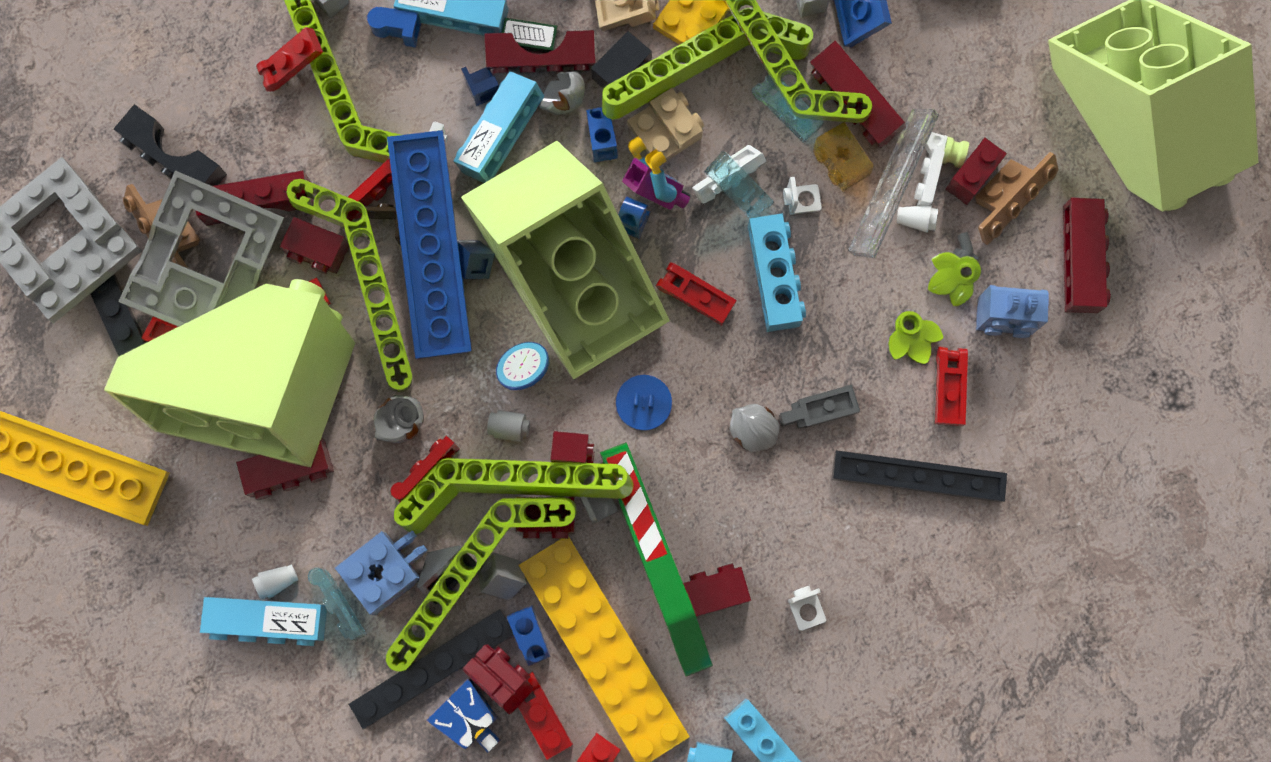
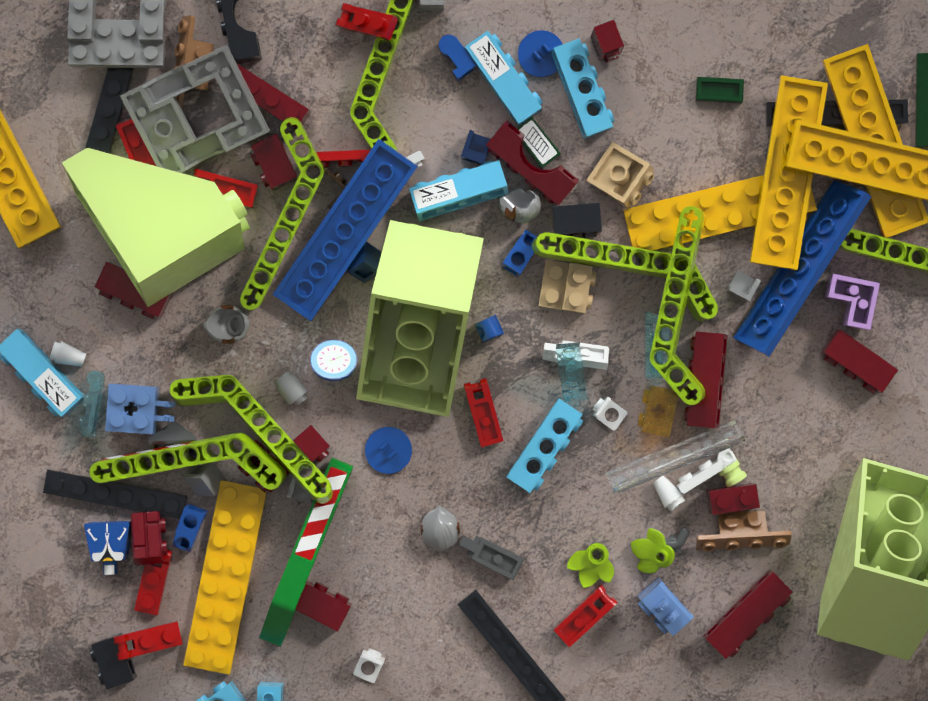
camera: 45 degrees right, 10 degrees up
(439, 450) = (235, 368): red plate -> none
(650, 181) = (519, 317): torso -> none

